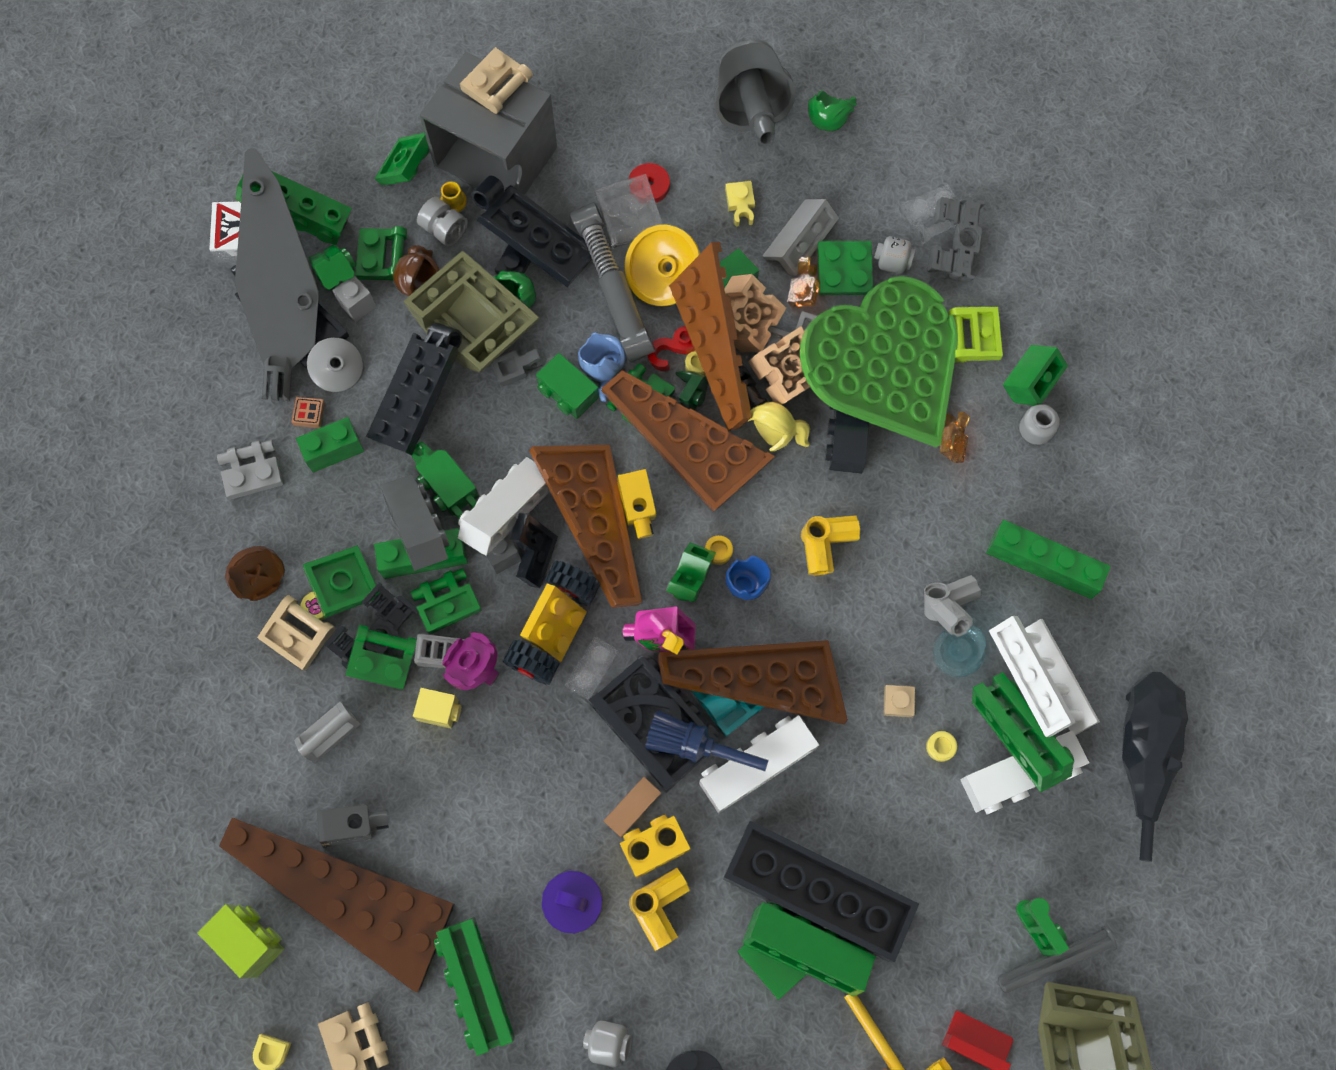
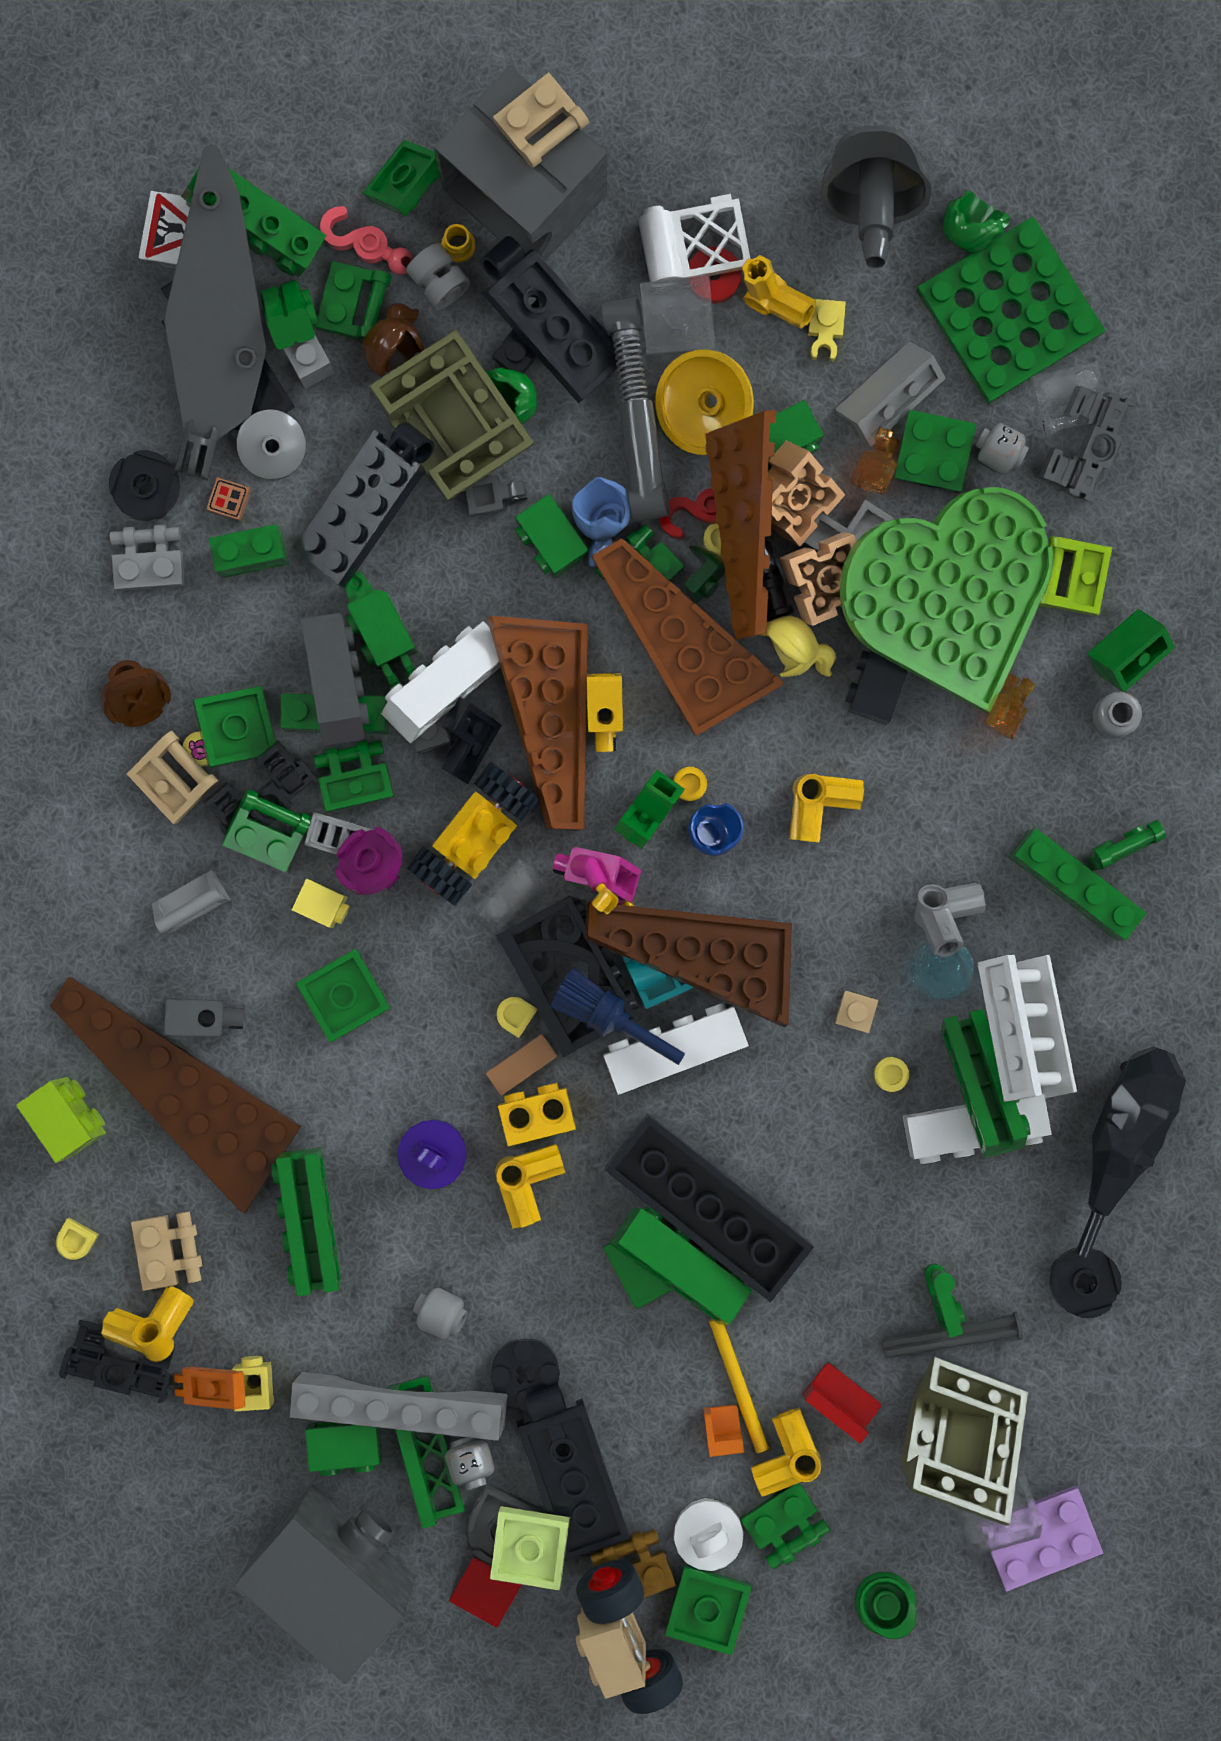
camera: 10 degrees right, 15 degrees up
(248, 427) = (135, 468): none -> black plate
(385, 210) = (367, 241): none -> coral piece
(469, 781) = (343, 995): none -> green plate
(609, 168) = (665, 242): none -> white piece
(618, 766) = (515, 1015): none -> light yellow tile
(693, 183) = (770, 294): none -> yellow piece
(874, 179) = (1045, 269): none -> green piece
(1079, 517) = (1135, 839): none -> green plate
(1170, 891) = (1102, 1292): none -> black plate

